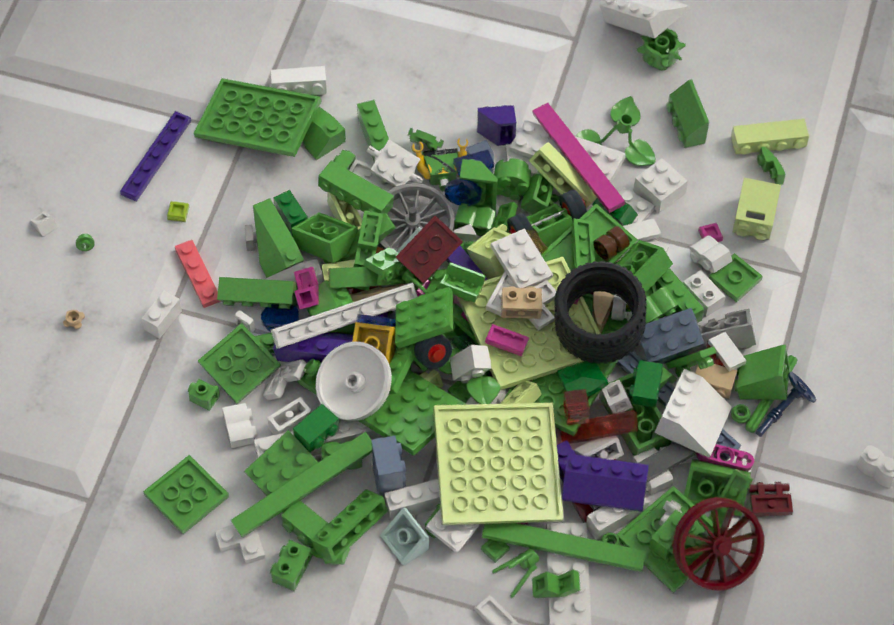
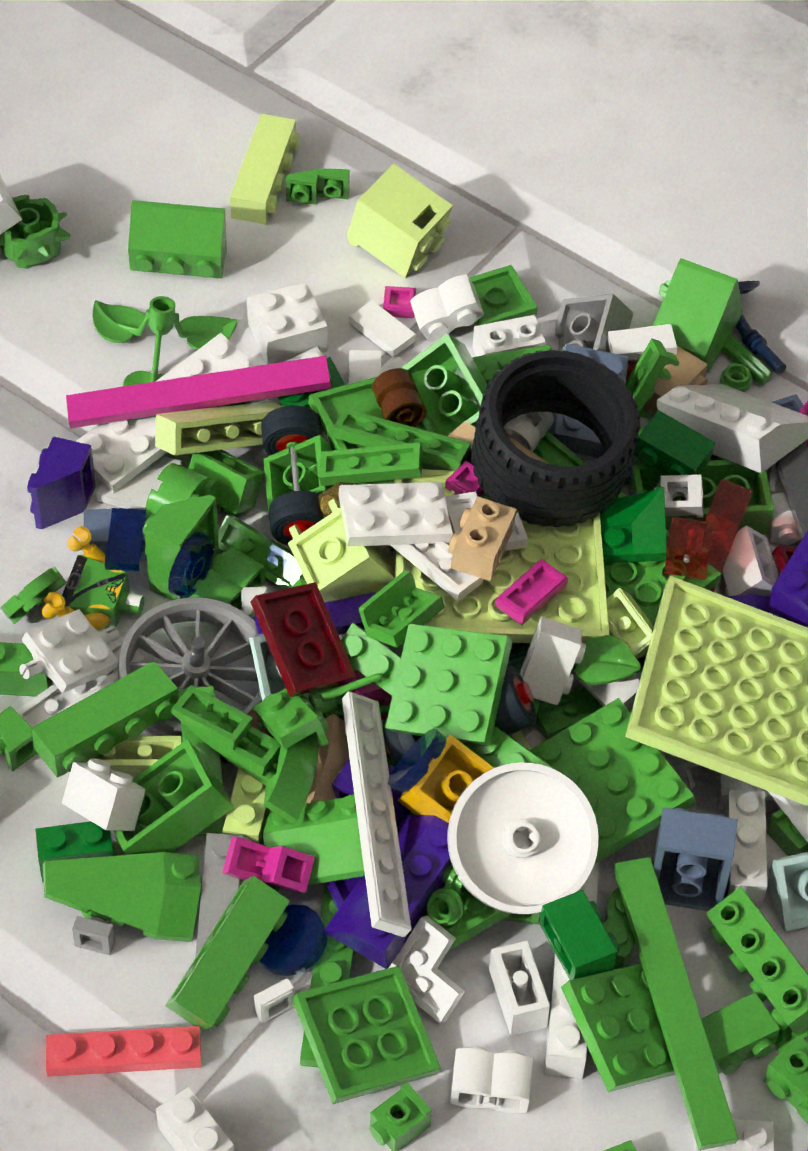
camera: 70 degrees left, 5 degrees down
(313, 207) = (104, 795): none -> white brick
(557, 243) = (371, 464): none -> bright green plate
(686, 232) = (382, 328): none -> white tile

